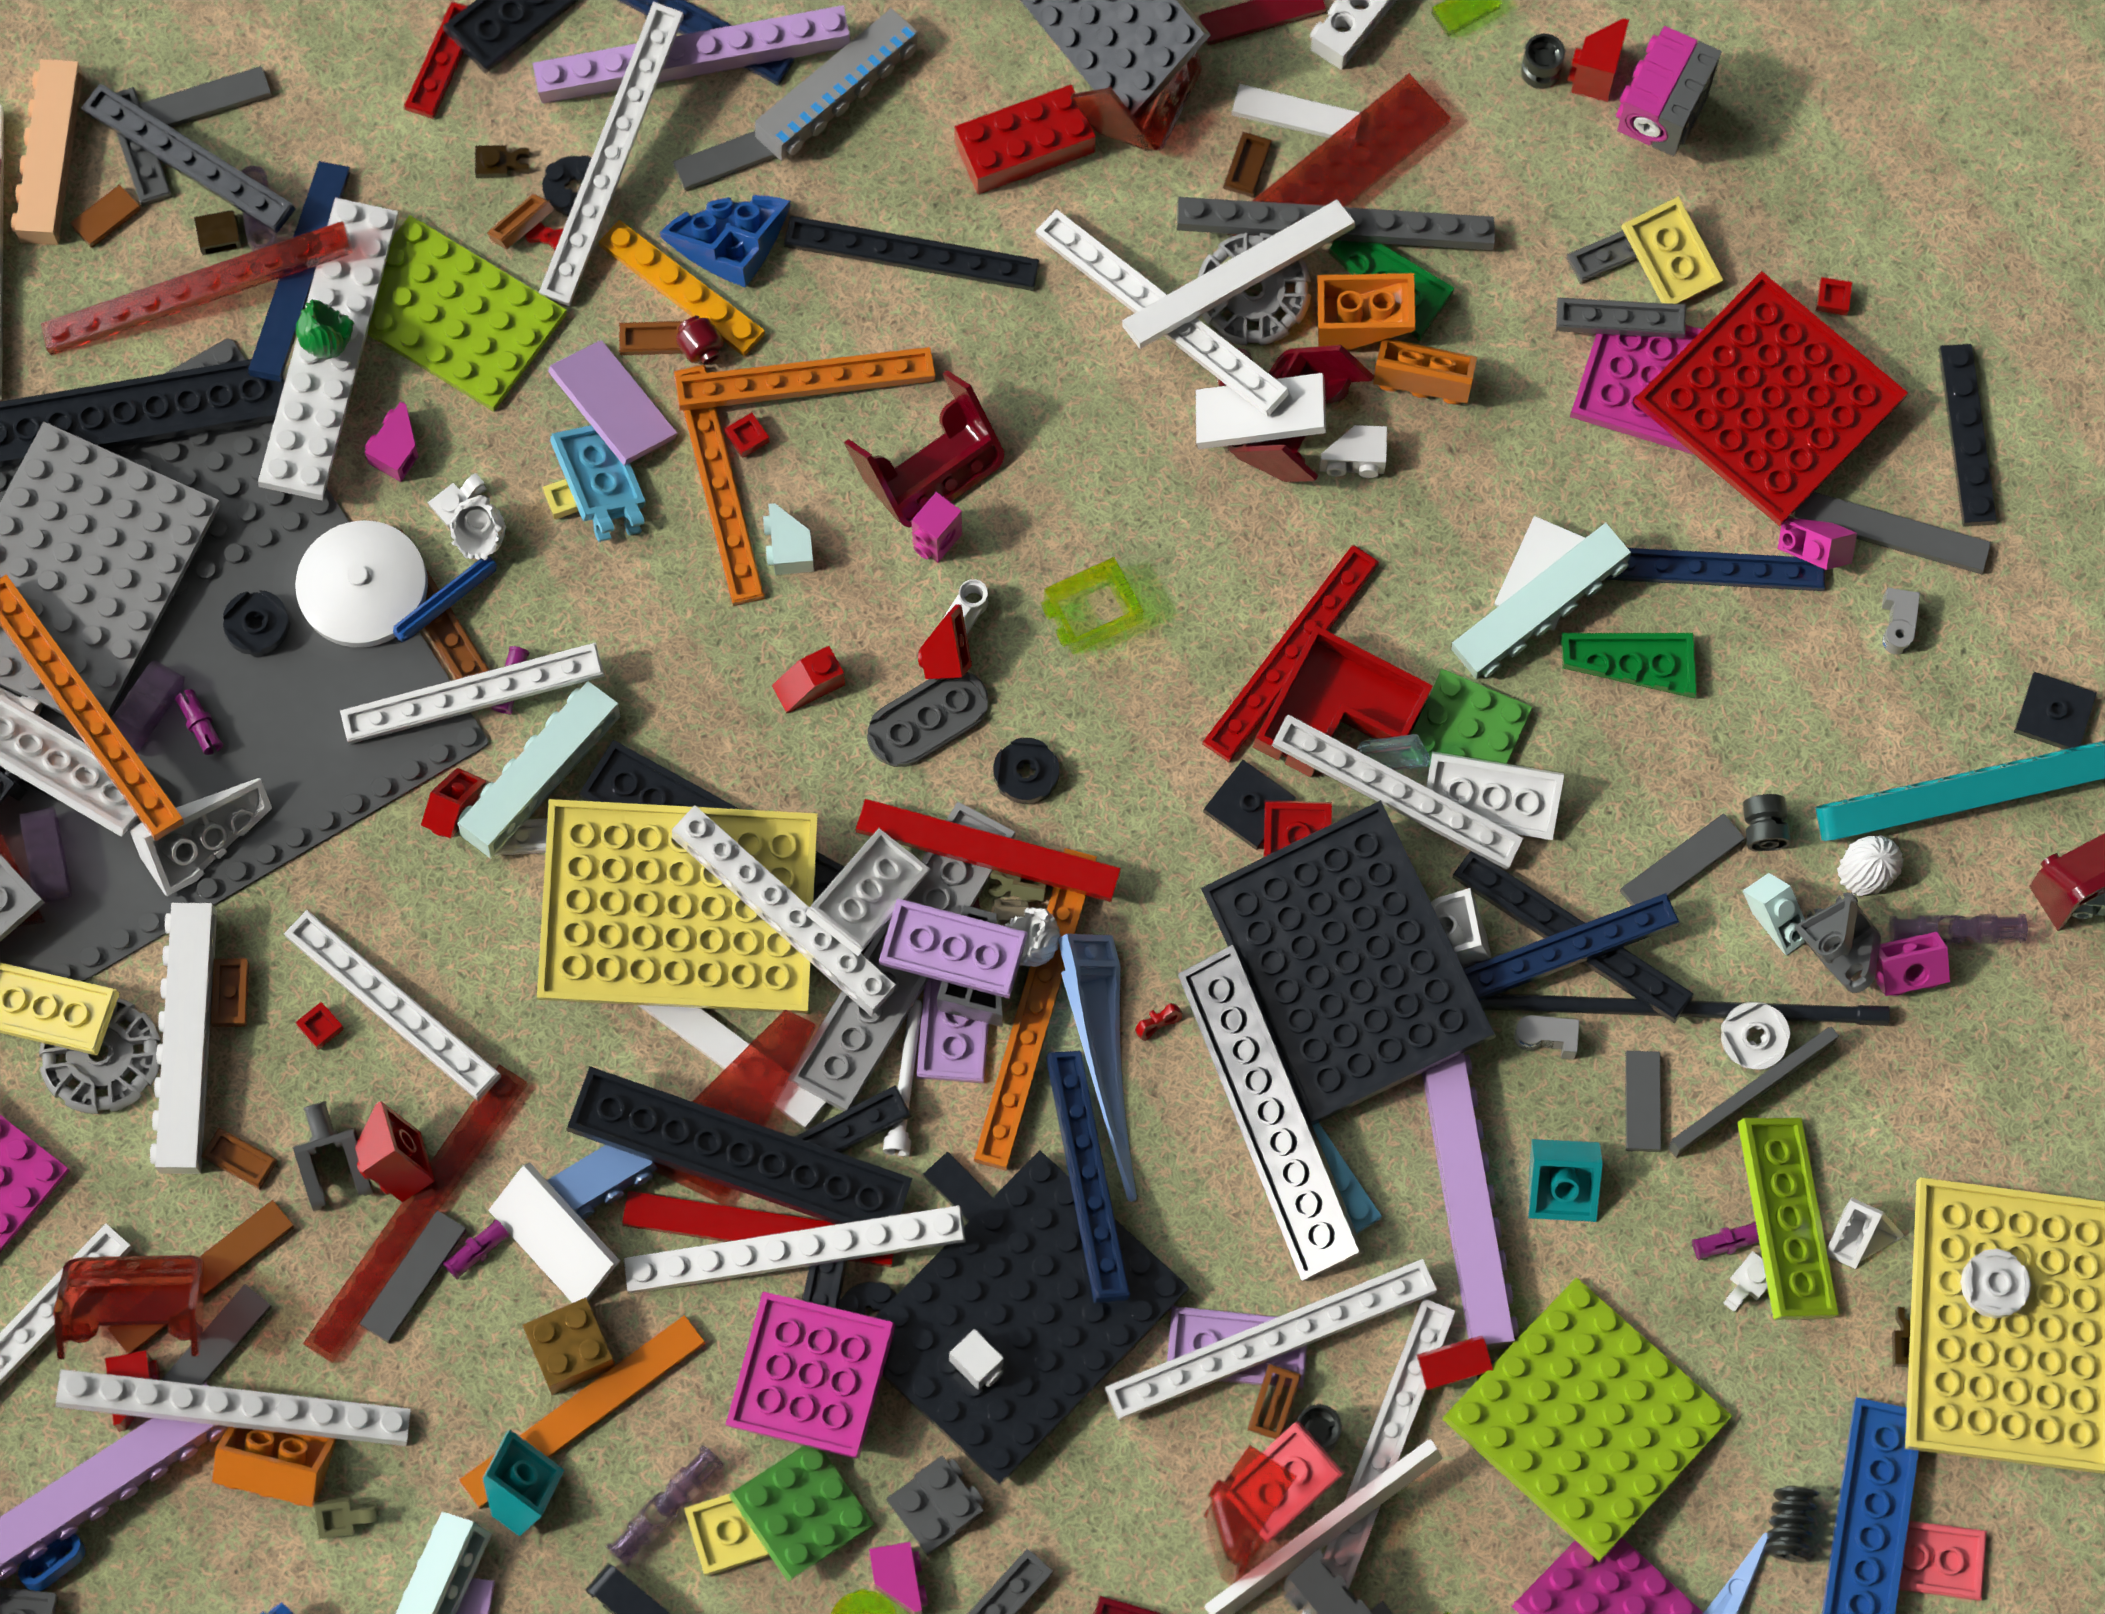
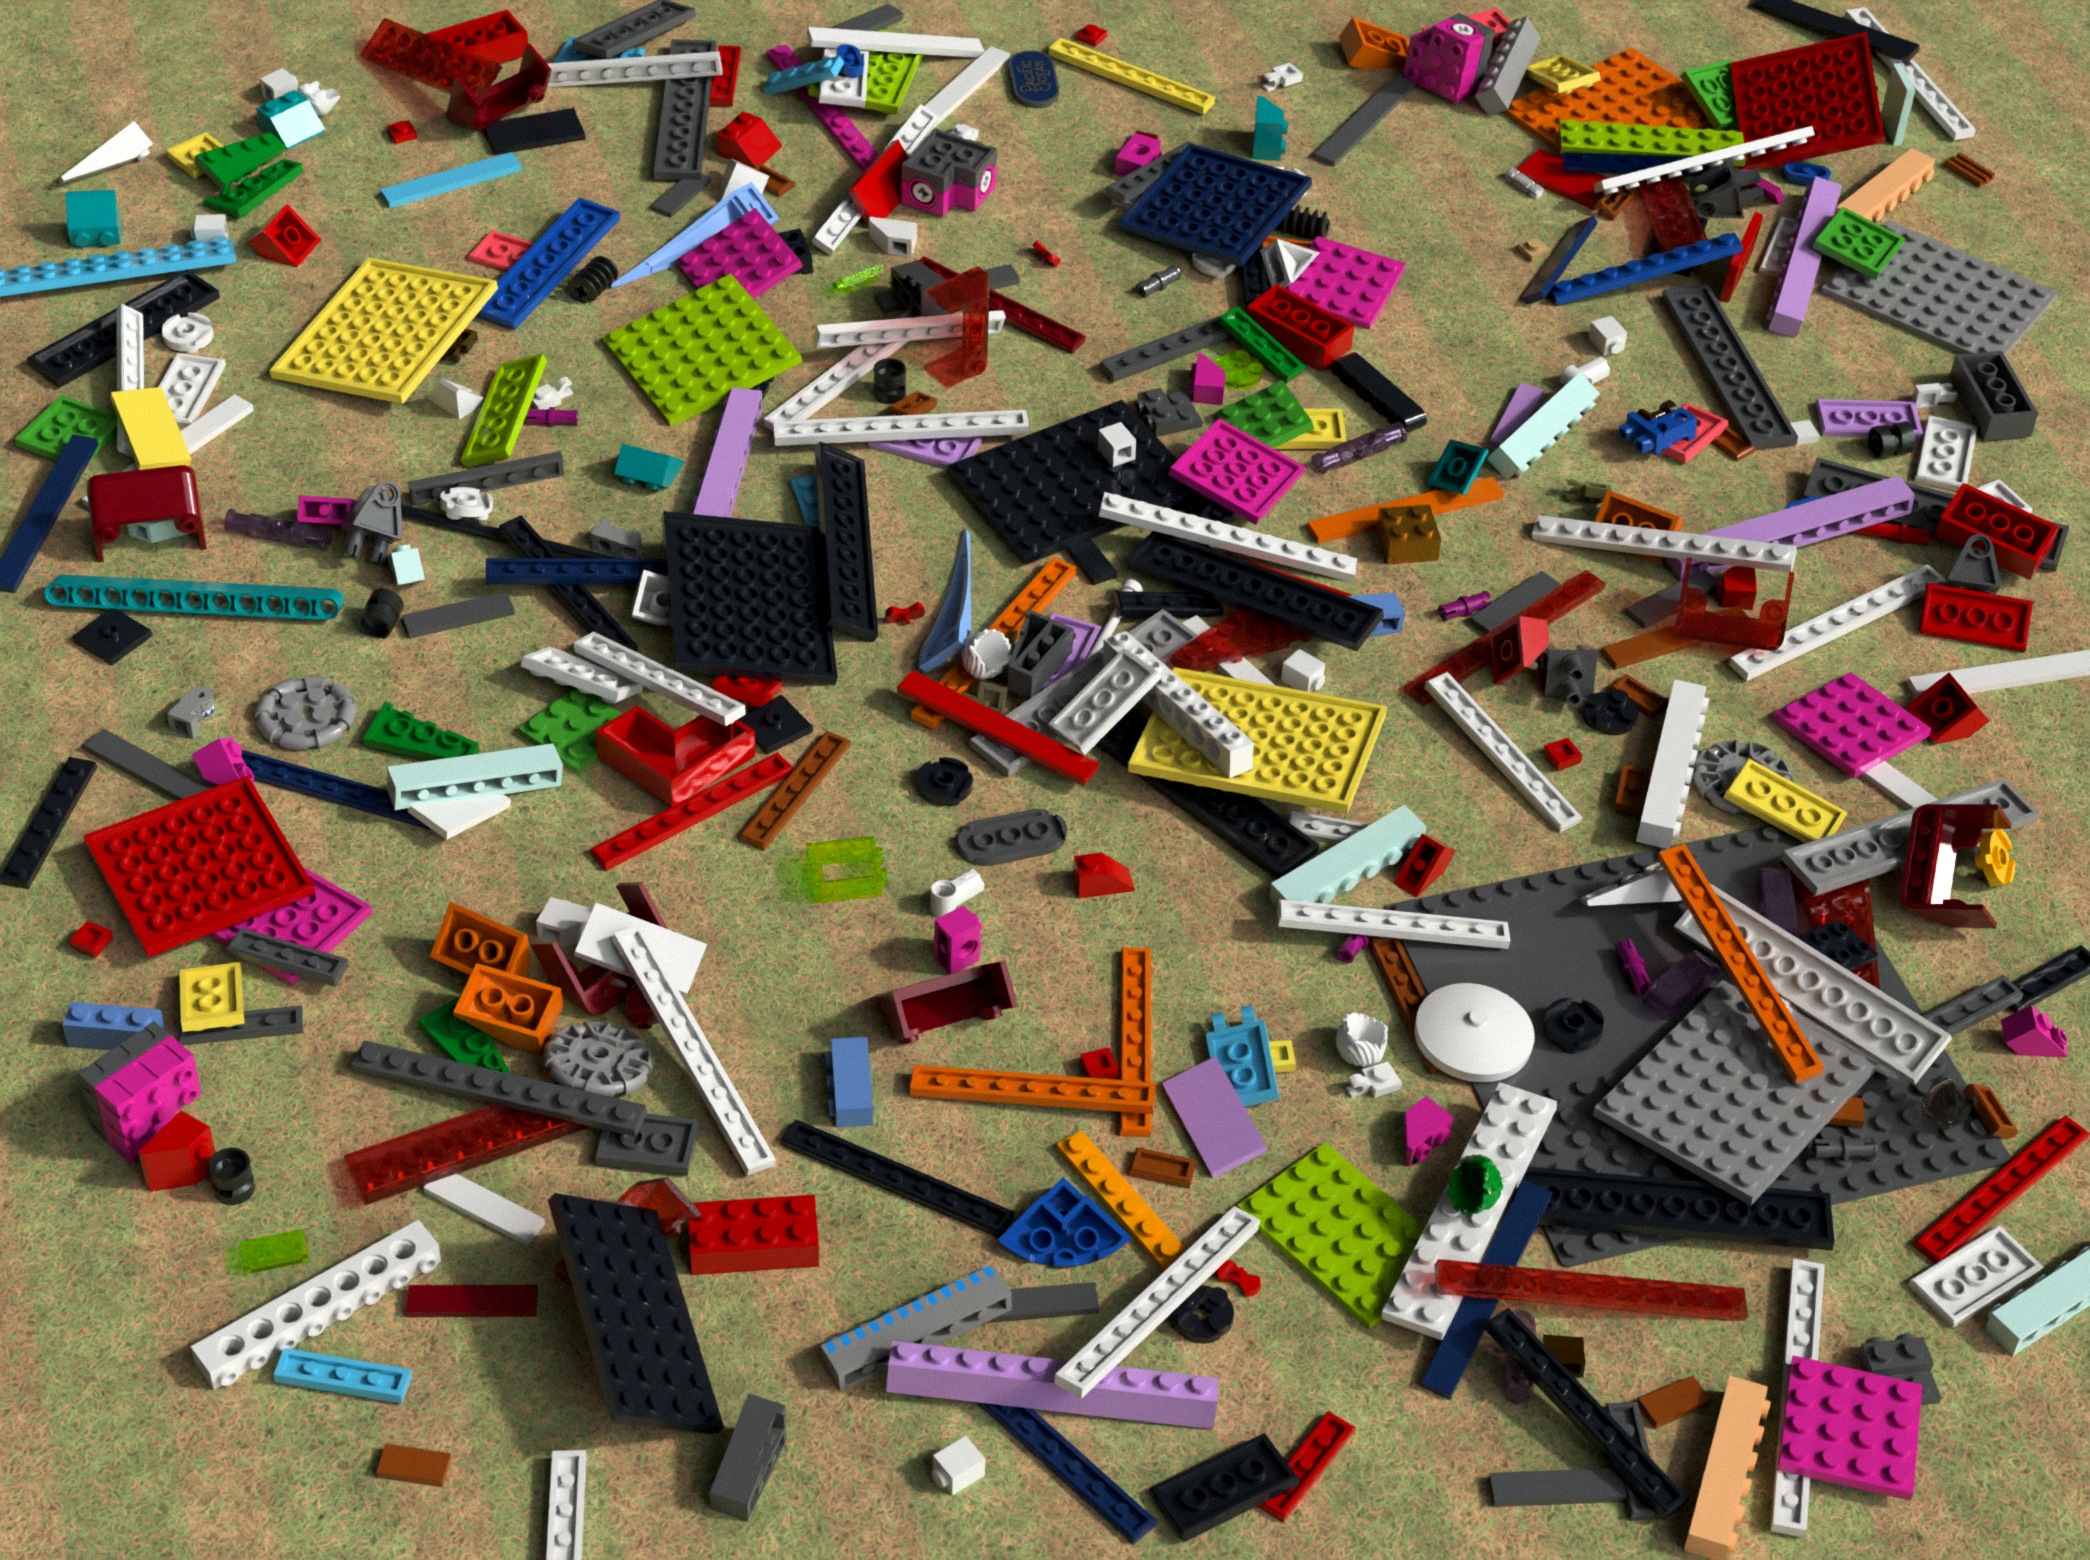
camera: 165 degrees left, 25 degrees down
(265, 1136) = (1616, 701): none -> black plate
(444, 598) = (1411, 994): blue axle -> none
(495, 161) = (1273, 1355): dark brown plate -> none
(520, 221) = (1262, 1289): dark orange tile -> none
(553, 1234) = (1405, 589): white tile -> none
(652, 1061) = (1303, 672): none -> white brick
(699, 340) = (1120, 1142): dark red head -> none
(790, 543) = (1087, 972): light aqua slope -> none
(947, 648) = (983, 857): red slope -> none
(953, 948) = (1051, 647): lavender tile -> none
(992, 339) = (850, 1082): none -> medium blue brick
(1087, 1177) = (996, 532): dark blue tile -> none
(1150, 220) = (660, 1146): none -> dark grey plate
(1189, 716) = (795, 790): none -> dark orange tile
(1238, 274) = (609, 1043): white tile -> none
(1247, 164) = (550, 1174): reddish brown tile -> none
(1314, 1471) = (926, 357): coral tile -> none
(1397, 752) = (636, 698): clear light blue tile -> none
(1454, 1362) = (779, 385): red tile -> none
(1642, 1101) = (567, 498): dark grey tile -> none
(1747, 191) = (105, 1025): none -> medium blue brick
(1778, 643) = (309, 730): none -> light grey plate
(1870, 865) = (317, 571): white hair -> none
(1995, 1283) = (385, 339): white tile -> none

